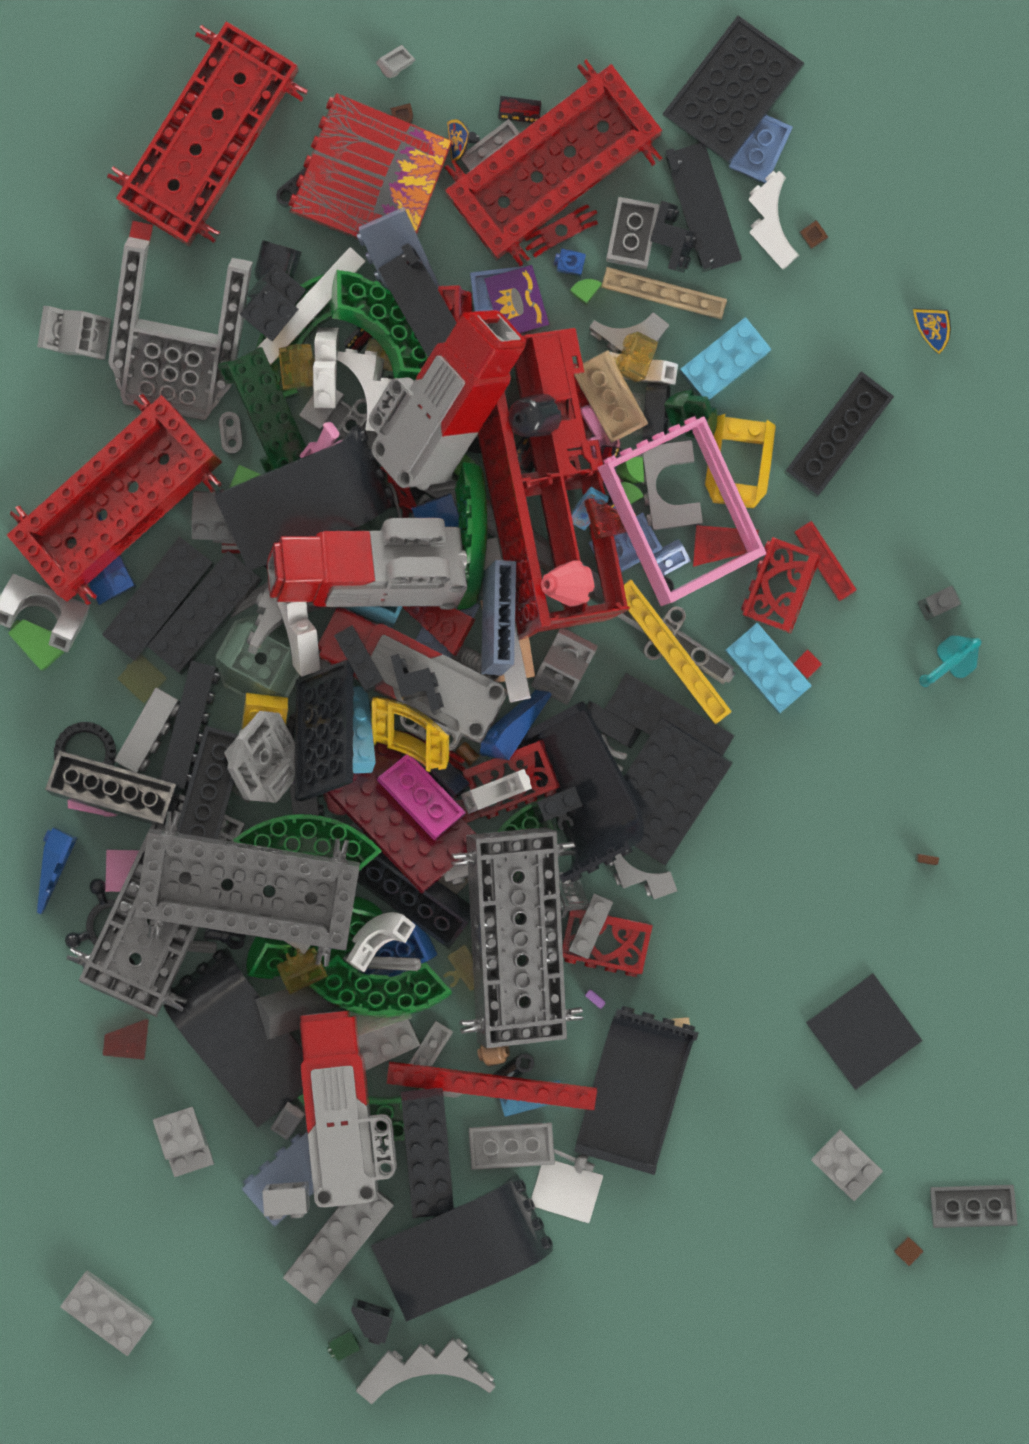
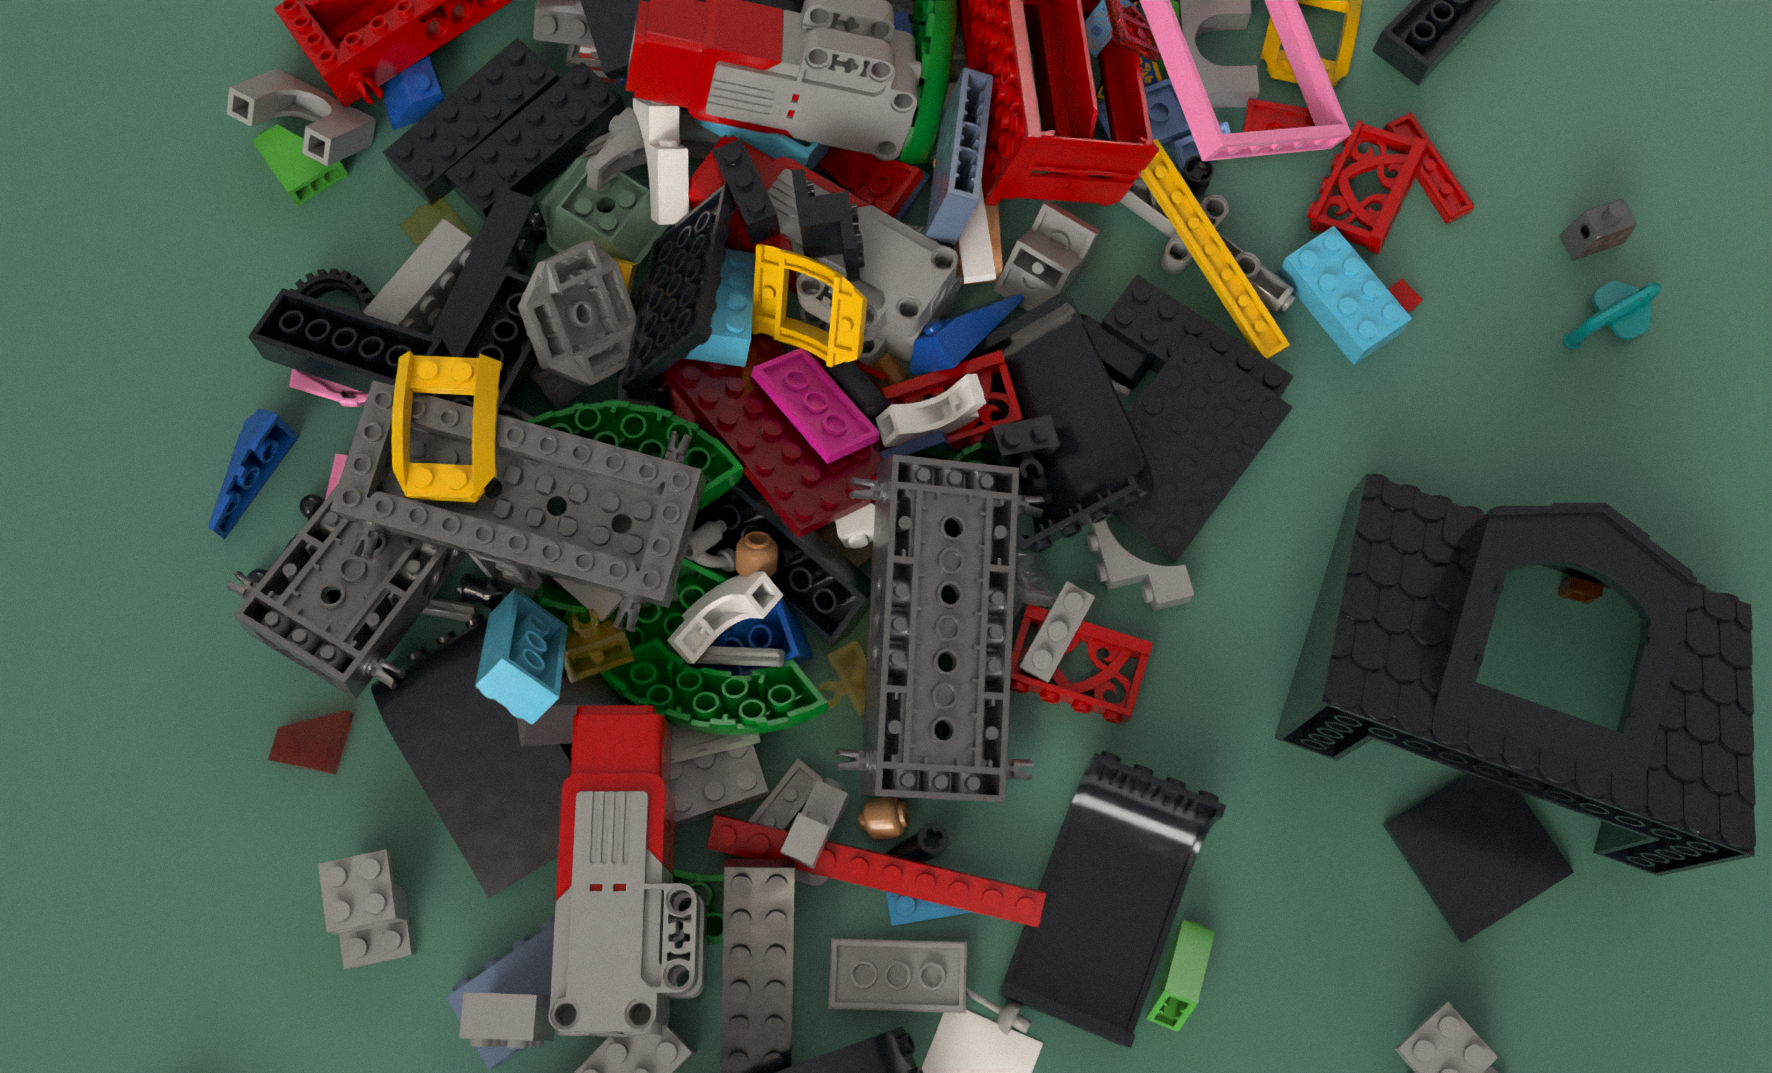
camera: 10 degrees right, 15 degrees down
(198, 828) = (456, 377): none -> yellow wedge
(263, 988) = (522, 657): none -> medium azure brick
(287, 1120) = (537, 893): light grey tile -> none
(362, 890) = (705, 538): none -> light grey plant
(395, 900) = (756, 553): none -> medium nougat head
(452, 1064) = (816, 822): none -> light grey arch
(492, 820) = (934, 446): none -> dark blue tile
(569, 583) = (1072, 91): coral cone -> none
(592, 996) = (1053, 750): medium lavender tile -> none
(683, 1128) = (1181, 976): none -> bright green slope
(805, 902) = (1409, 626): none -> black piece

